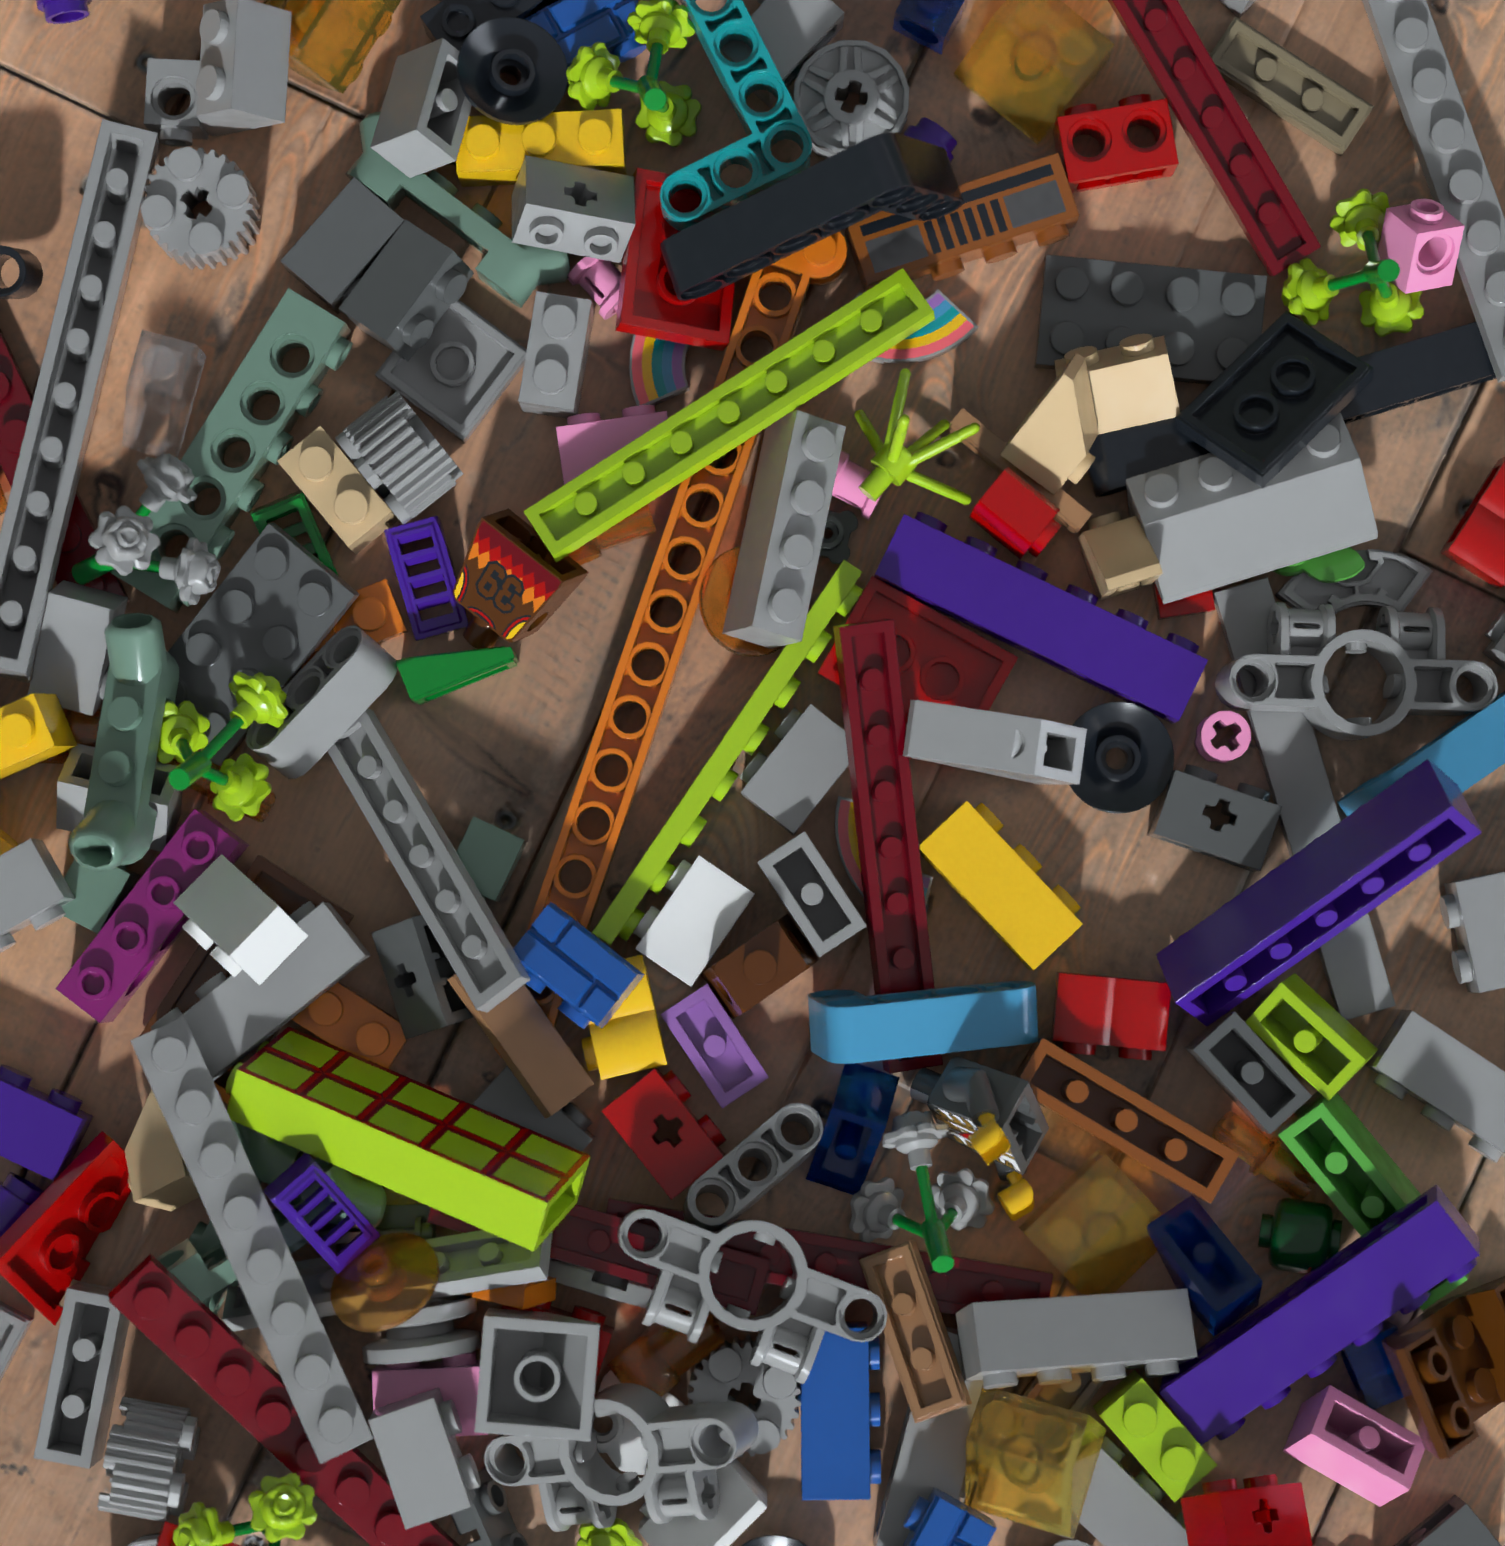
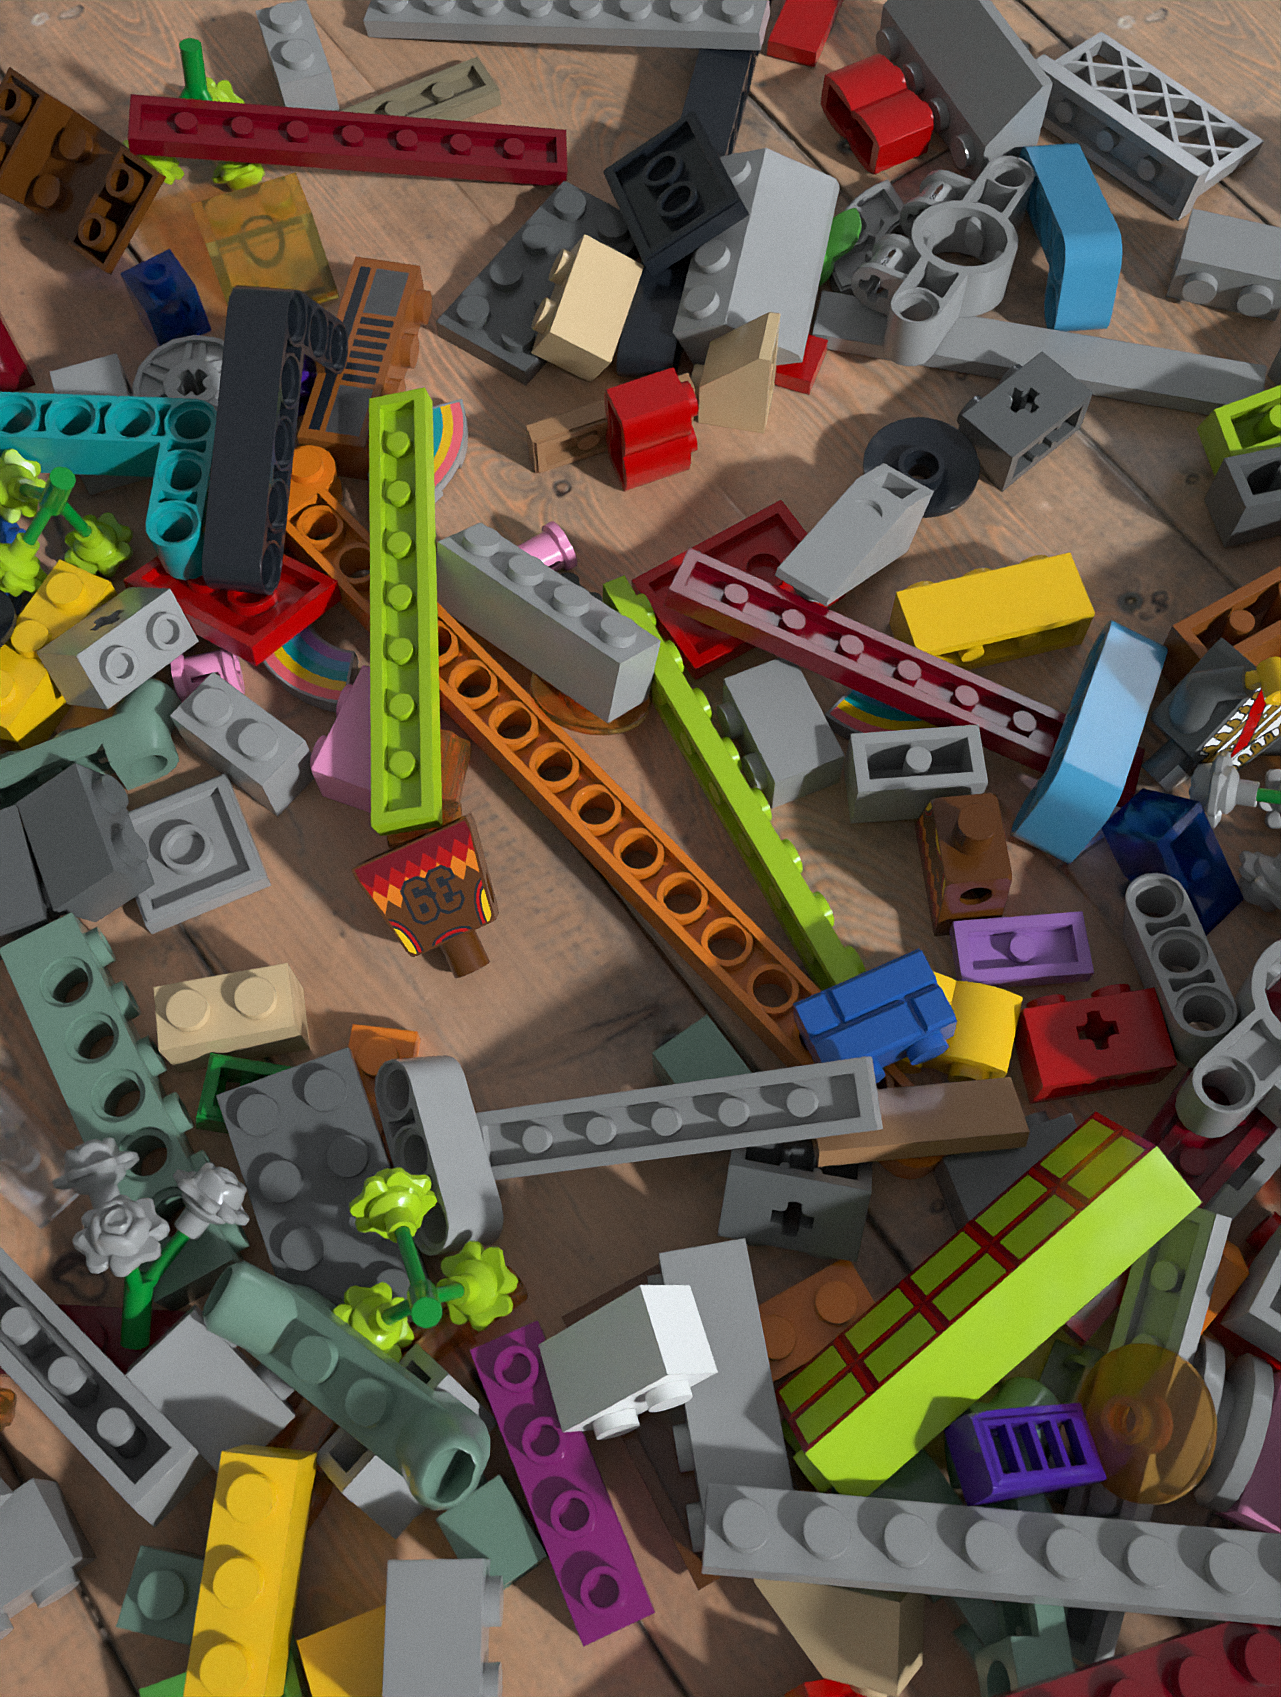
camera: 60 degrees left, 20 degrees down
(399, 457) = (237, 923): light grey brick -> none
(413, 532) = (359, 955): dark purple slope -> none
(443, 673) = (482, 1020): green slope -> none
(693, 919) = (879, 898): white brick -> none
(896, 462) = (537, 494): lime plant -> none
(1041, 618) = (759, 463): dark purple brick -> none
(1058, 431) = (592, 344): tan slope -> none
(1110, 1013) = (1165, 578): red brick -> none
(1119, 158) = (381, 220): red brick -> none
(1239, 741) = (949, 372): bright pink bush -> none
(1318, 892) = (1146, 334): dark purple brick -> none
(1386, 307) = (643, 112): lime plant -> none
(1423, 243) = (611, 54): bright pink brick -> none

